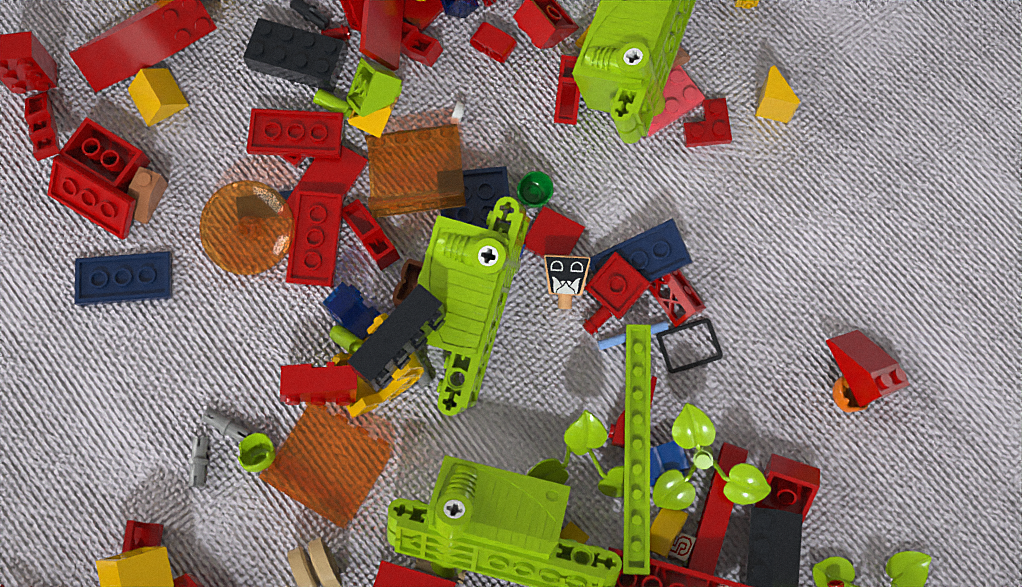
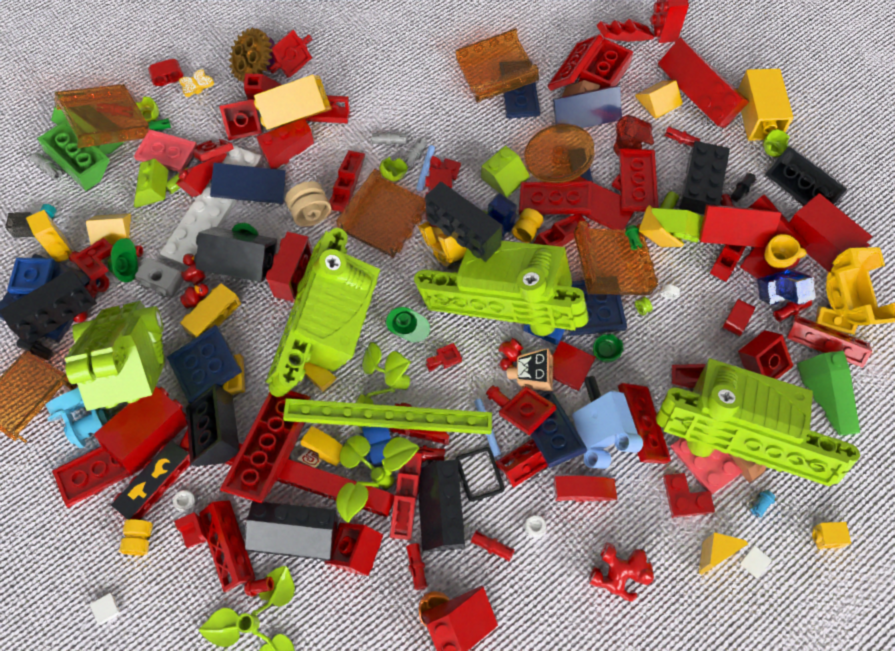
camera: 90 degrees right, 10 degrees down
(83, 307) = (496, 65): none -> clear orange panel
(175, 185) = (589, 107): none -> dark blue tile
(224, 132) = (631, 133): none -> clear red piece
(226, 74) = (681, 137): none -> red pin
(251, 410) = (426, 165): none -> light blue bar
(254, 378) = (447, 164): none -> red plate
(268, 520) = (347, 180): none -> red slope
(270, 301) = (504, 171): none -> lime slope
(355, 273) = (527, 225): none -> yellow wheel
(384, 146) = (633, 237): none -> green pin
(476, 145) = (643, 306): none -> lime bush
(500, 429) = (408, 324): none -> green piece
(539, 301) = (511, 350): none -> red animal
(544, 381) = (446, 356): none -> red plate
(630, 158) = (644, 418): none -> red tile
(638, 197) = (604, 423): none -> light blue piece
(670, 391) = (432, 453): none -> red pin
(707, 230) = (584, 488): none -> red slope
(714, 49) = (764, 501): none -> dark azure pin
(735, 387) = (441, 507): none -> black slope
(737, 430) = (406, 498): none -> red slope
(748, 285) = (535, 526): none -> white tile
(772, 59) = (756, 562): none -> white sticker
(774, 332) = (492, 546): none -> red pin
(794, 181) = (636, 567): none -> red animal
(801, 416) = (416, 566): none -> red pin

